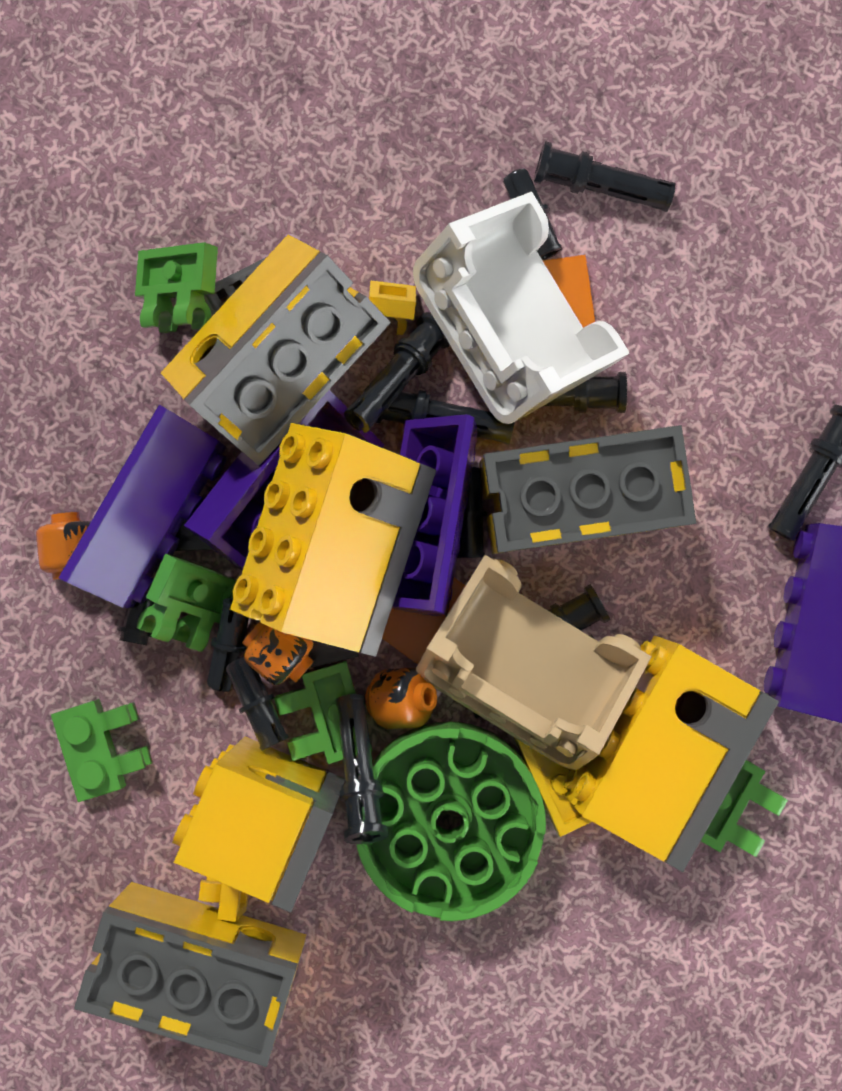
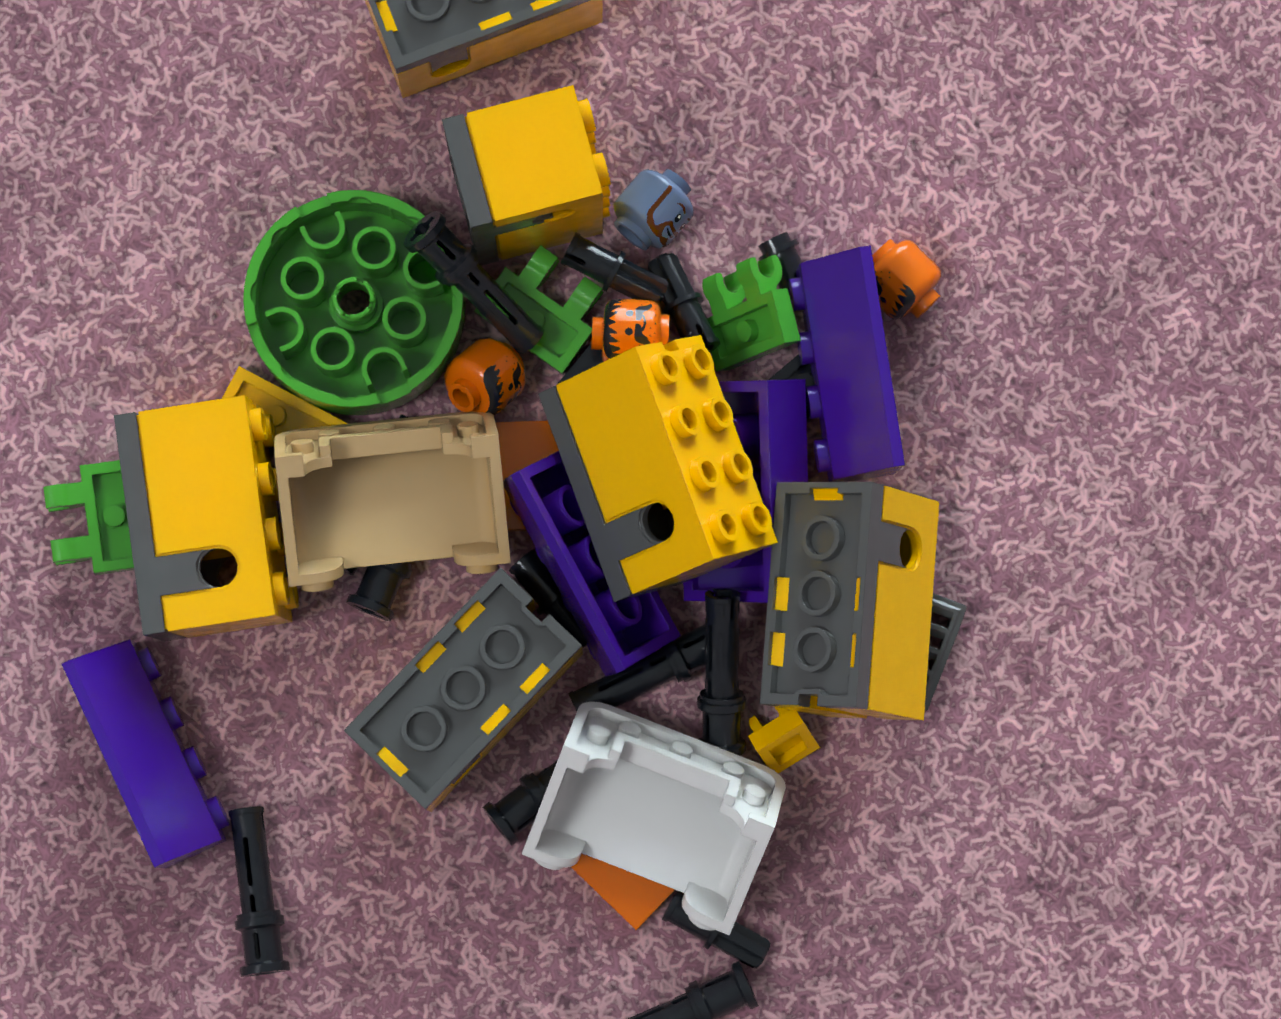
camera: 135 degrees right, 5 degrees down
(90, 749) = (736, 112): bright green plate -> none
(178, 273) = (1001, 608): bright green plate -> none
(196, 725) = (653, 209): none -> sand blue head
(231, 901) = (505, 83): yellow tile -> none

